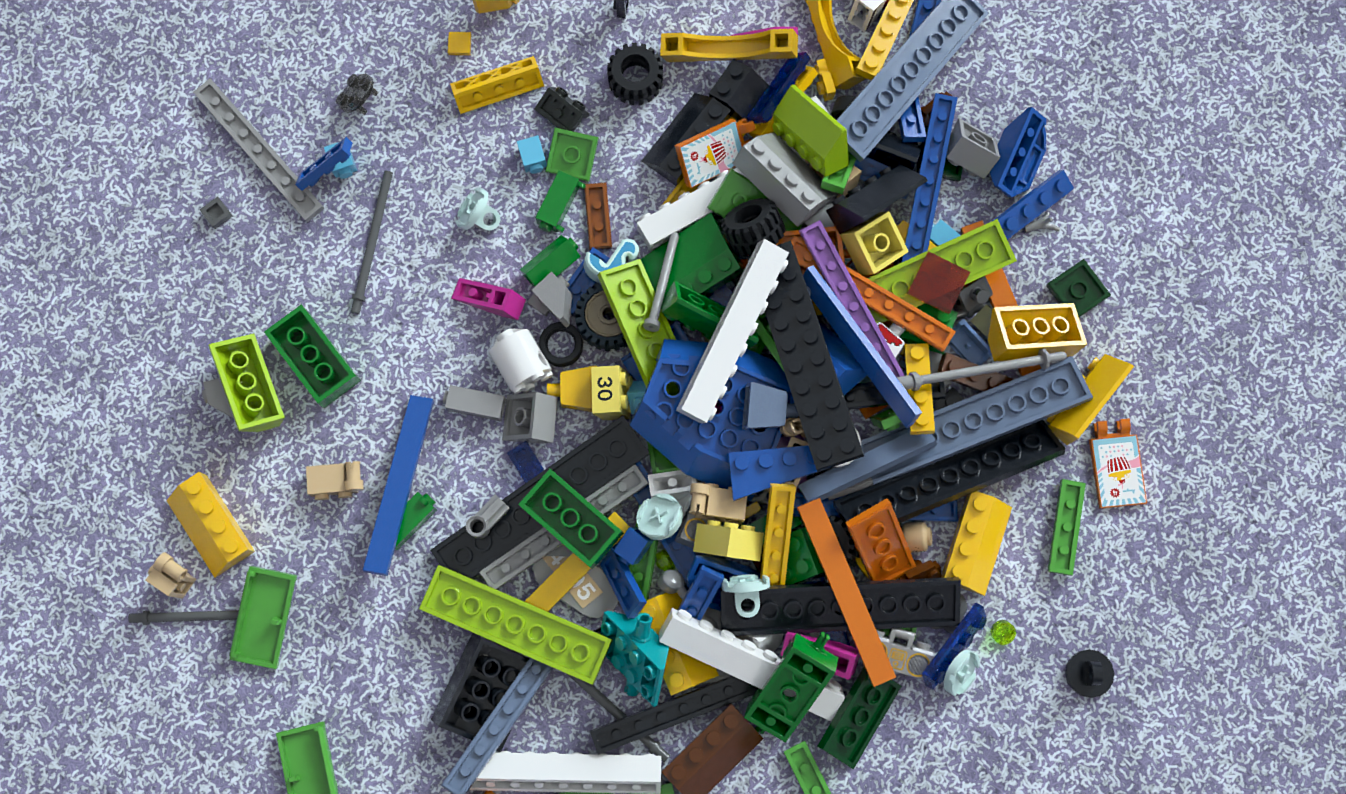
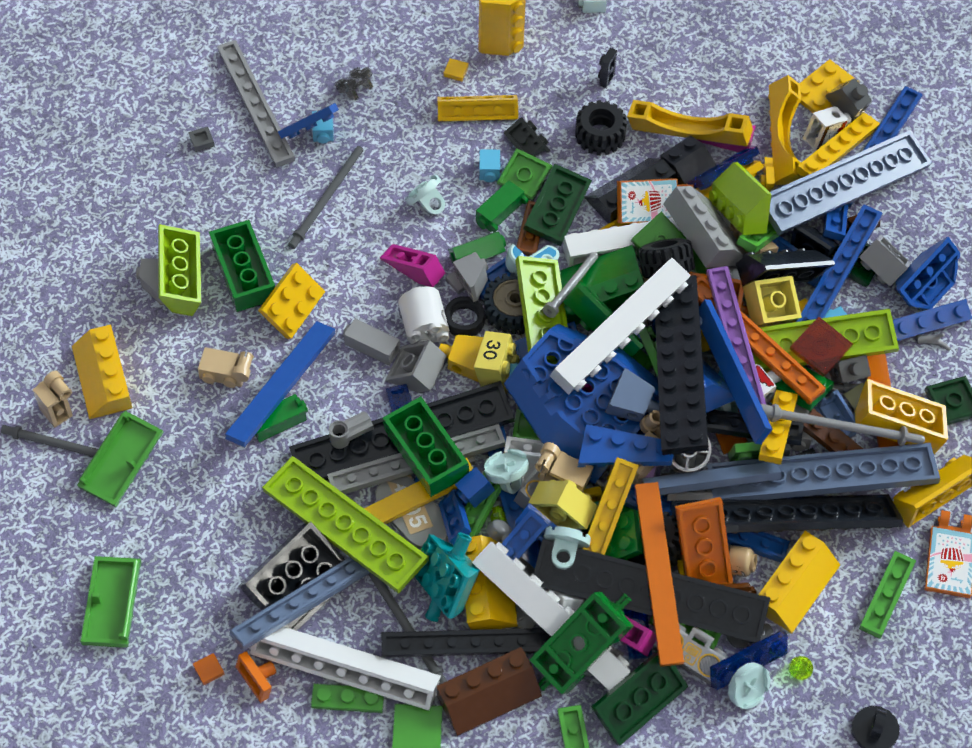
camera: 15 degrees right, 20 degrees down
(377, 383) = (291, 301): none -> yellow plate
(617, 182) = (557, 204): none -> dark green plate

